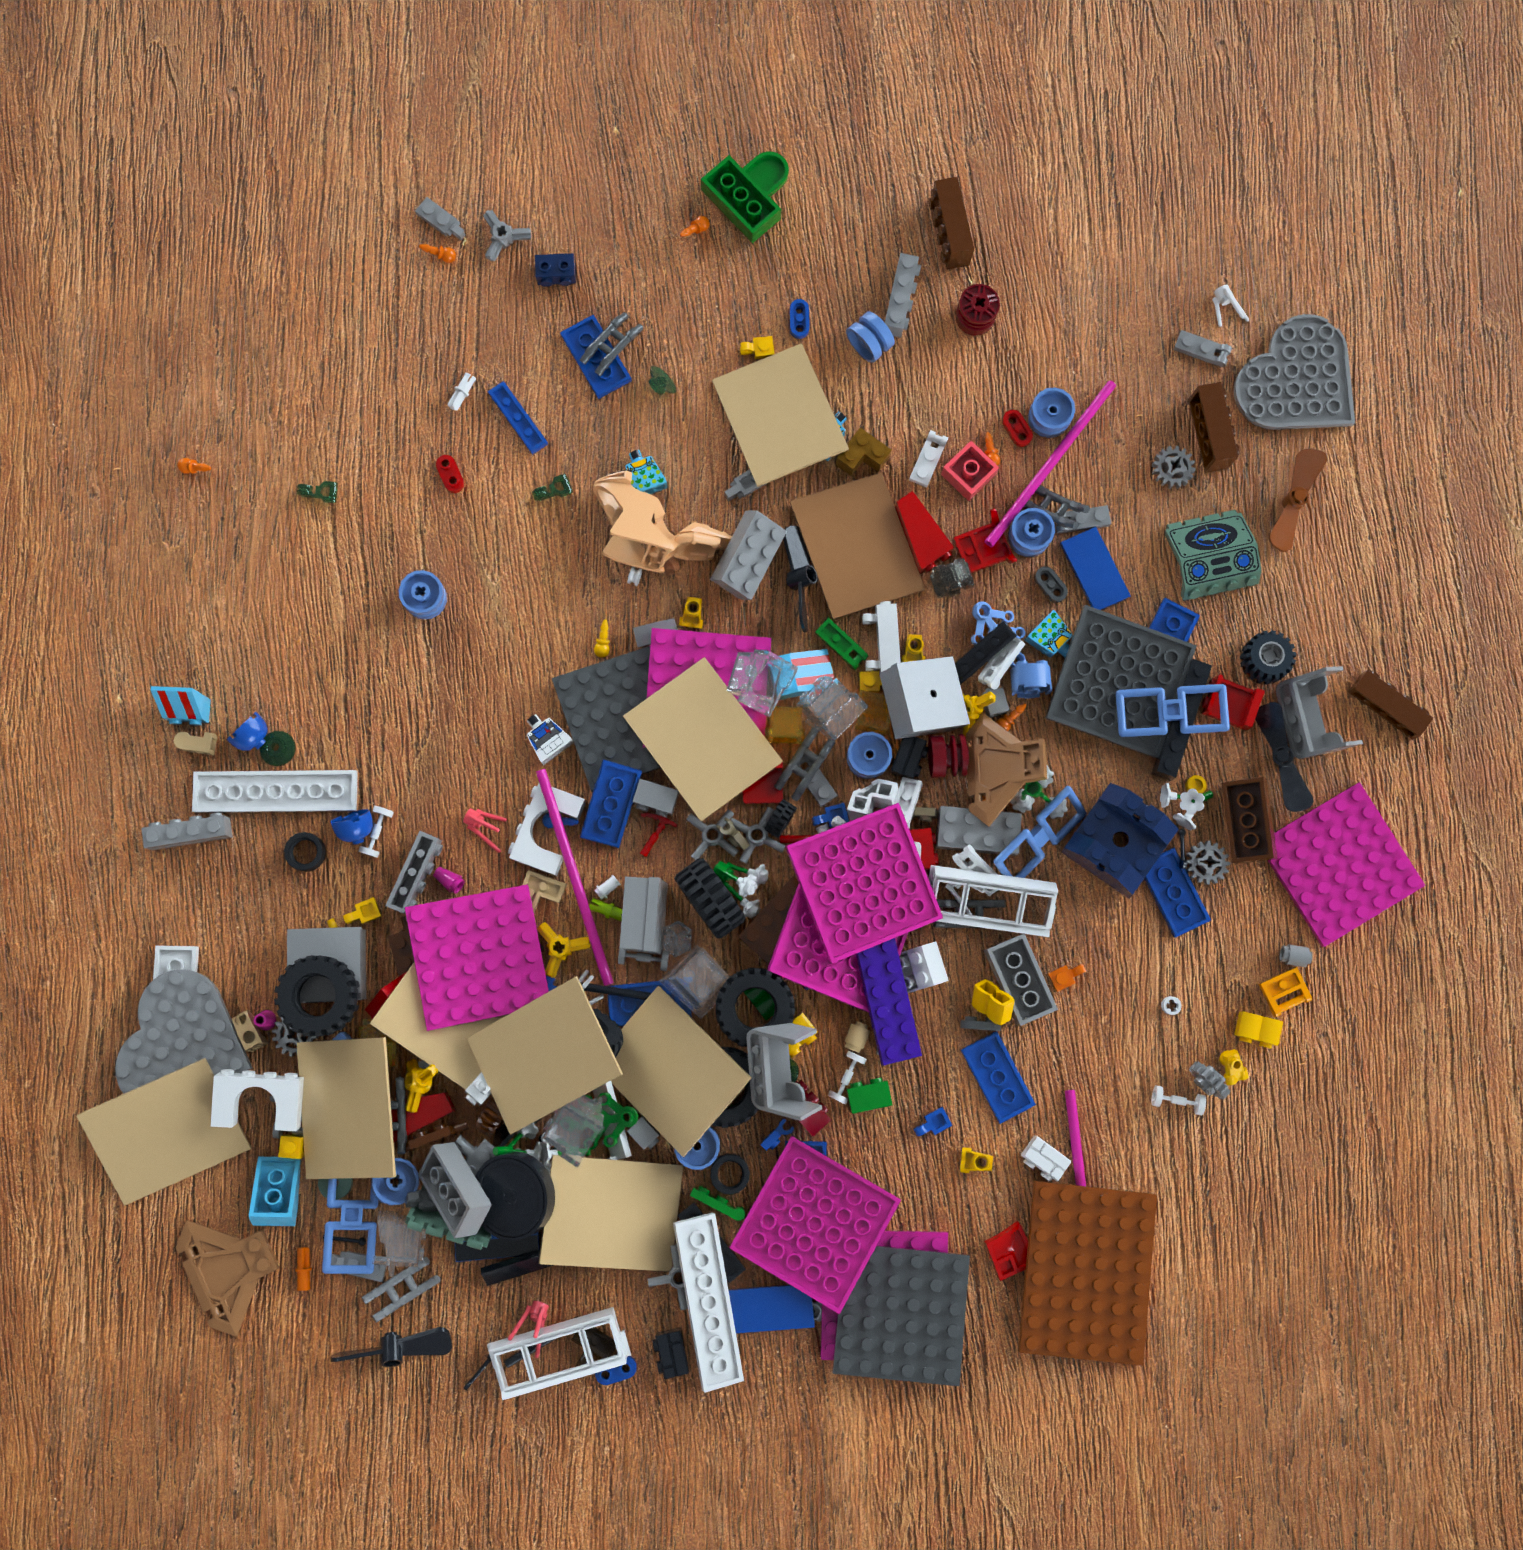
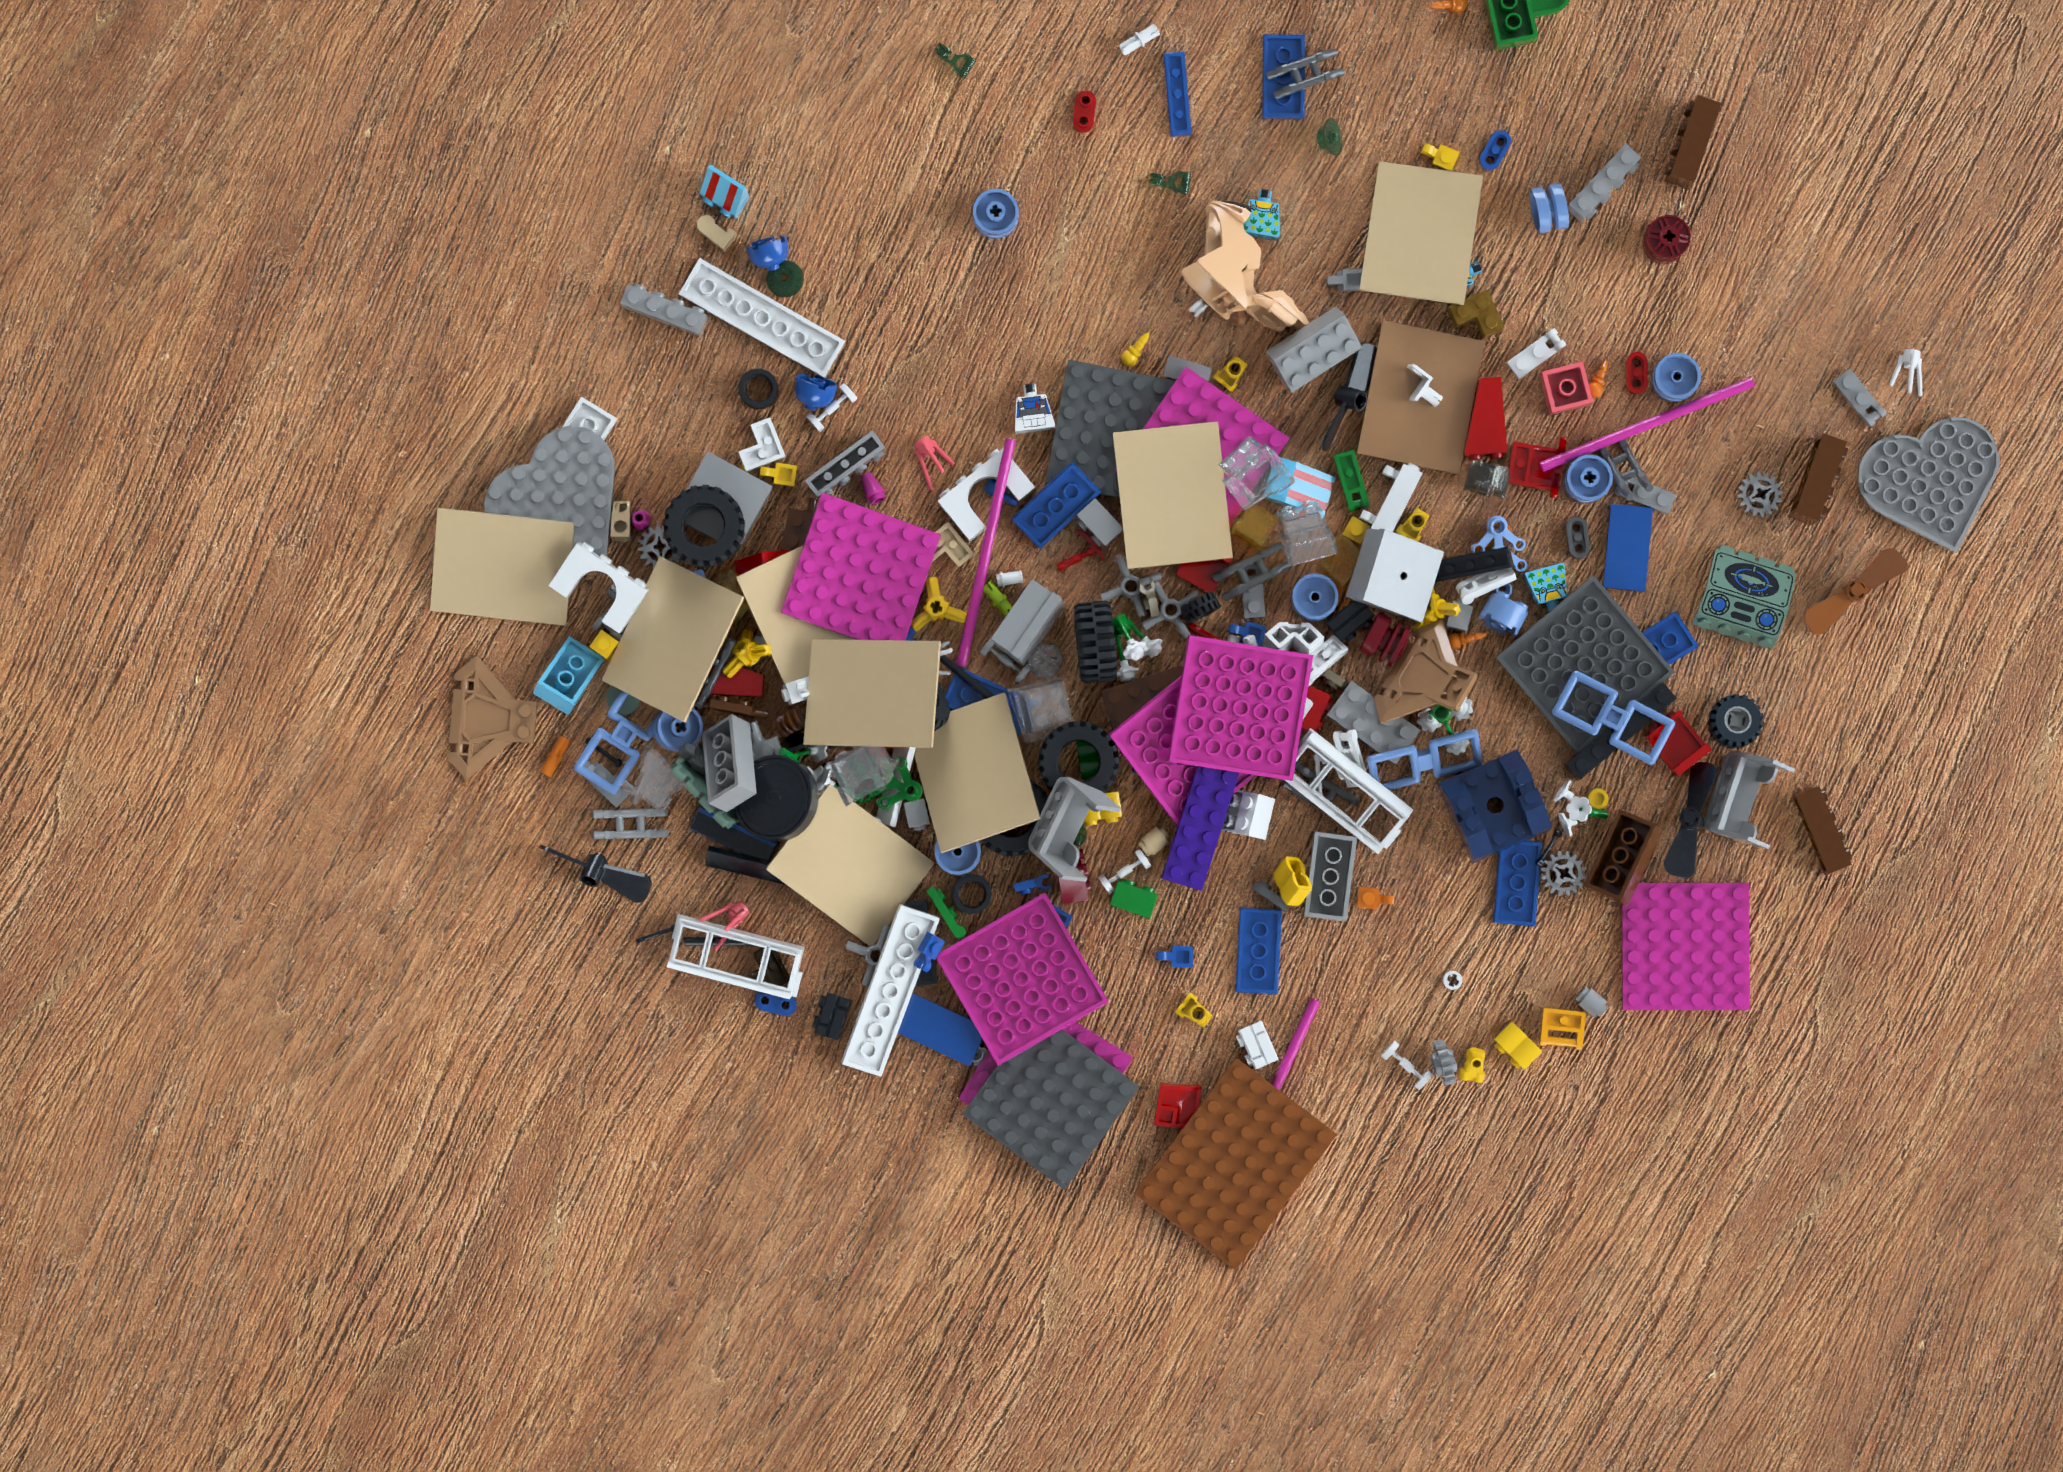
camera: 35 degrees right, 5 degrees up
(340, 900) = (767, 448): none -> white plate
(722, 1245) = (929, 949): none -> blue plate
(855, 536) = (1423, 389): none -> white bracket

